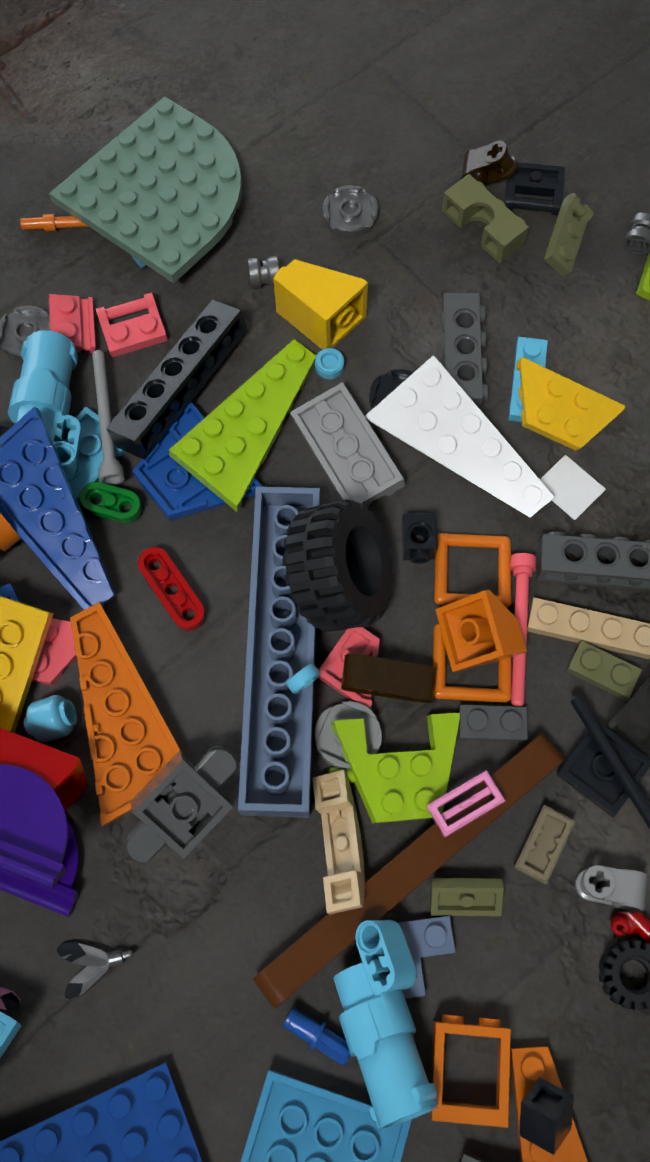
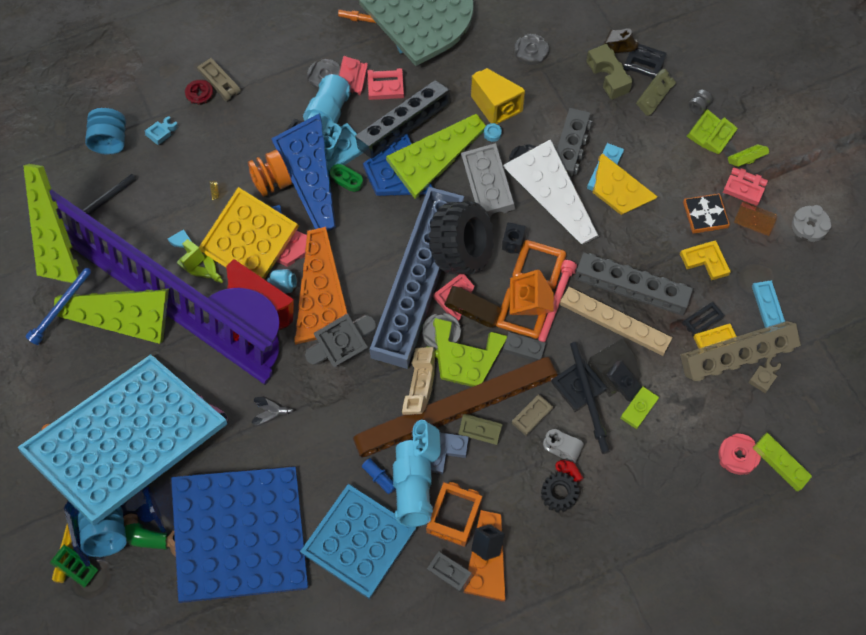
camera: 15 degrees right, 5 degrees down
(110, 470) = (351, 159): light grey piece -> none
(166, 577) = (366, 225): red plate -> none
(262, 271) = (467, 71): flat silver wheel -> none
(303, 678) = (424, 290): medium azure tile -> none
(441, 818) = (492, 387): bright pink tile -> none
(571, 487) = (611, 234): white sticker -> none
(604, 670) = (595, 334): olive plate -> none

